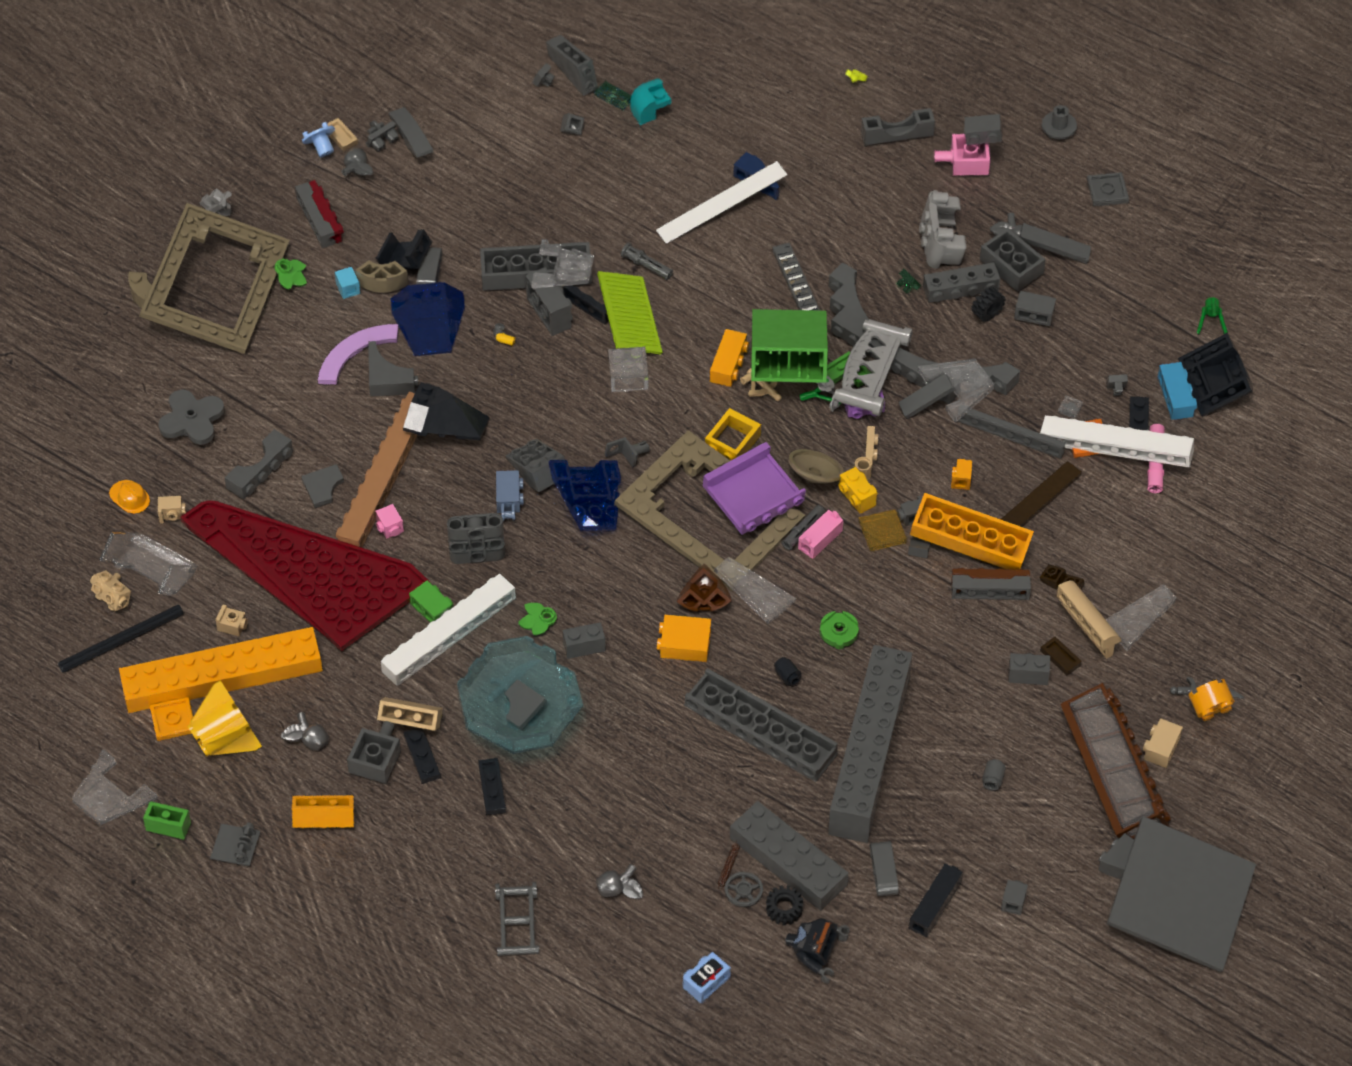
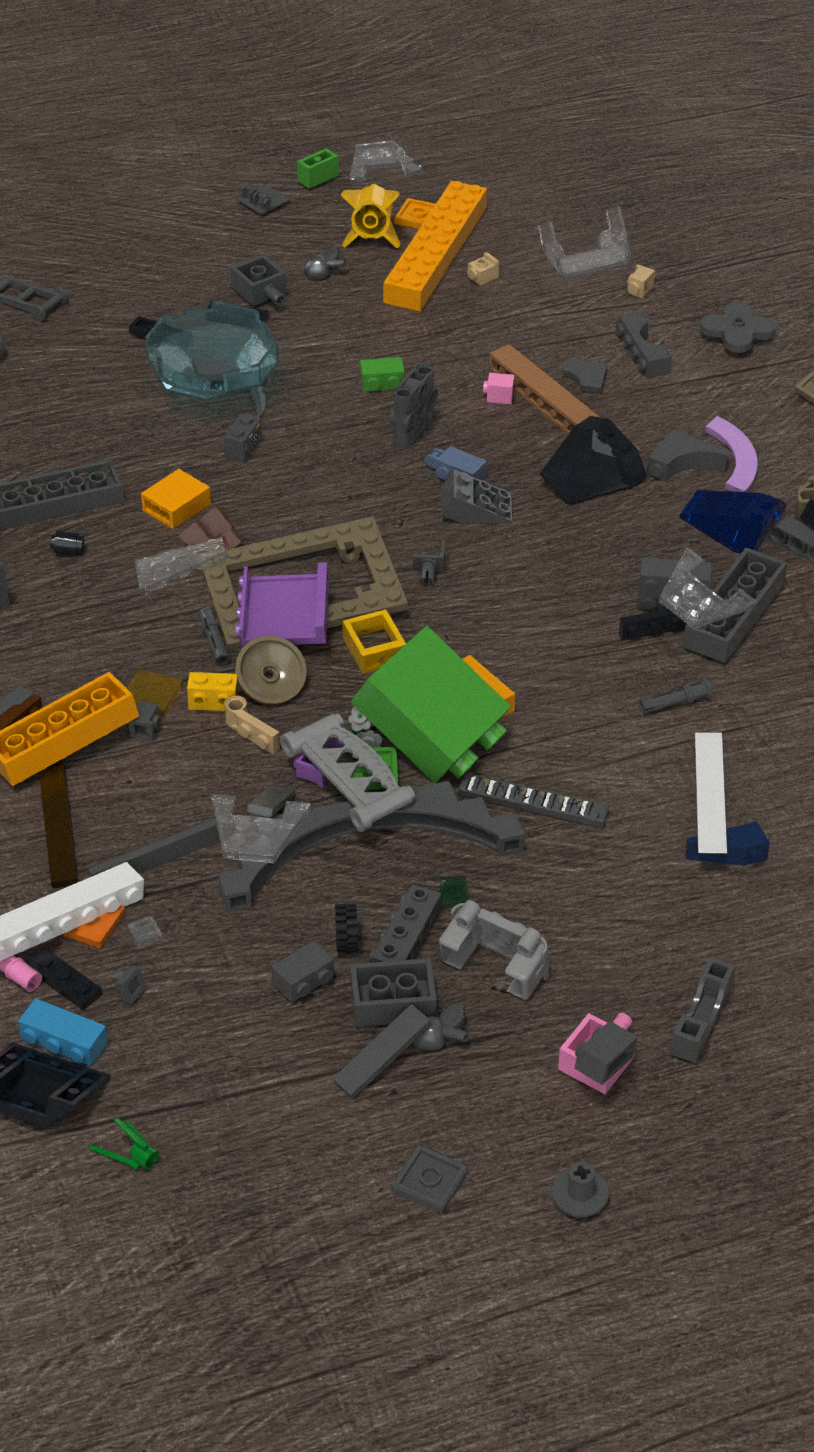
camera: 125 degrees right, 10 degrees down
(110, 590) = (579, 221): tan brick -> none
(120, 638) = (528, 214): black axle -> none
(129, 496) = (681, 270): light orange piece -> none
(319, 578) = (463, 335): dark red wing -> none
(323, 811) = (236, 237): light orange brick -> none
(410, 713) = (283, 310): tan brick -> none
(448, 629) = (345, 374): white brick -> none
(501, 336) = (667, 552): yellow arm -> none
(536, 618) = (302, 430): bright green plate -> none
(589, 493) = (404, 503): clear blue wedge -> none
(628, 369) = (534, 609): clear brick -> none
(629, 311) = (610, 644): lime window -> none
(820, 534) = (191, 640): bright pink brick -> none
(836, 638) = (83, 606): bright green plate -> none
(962, 474) = (148, 782): light orange brick -> none

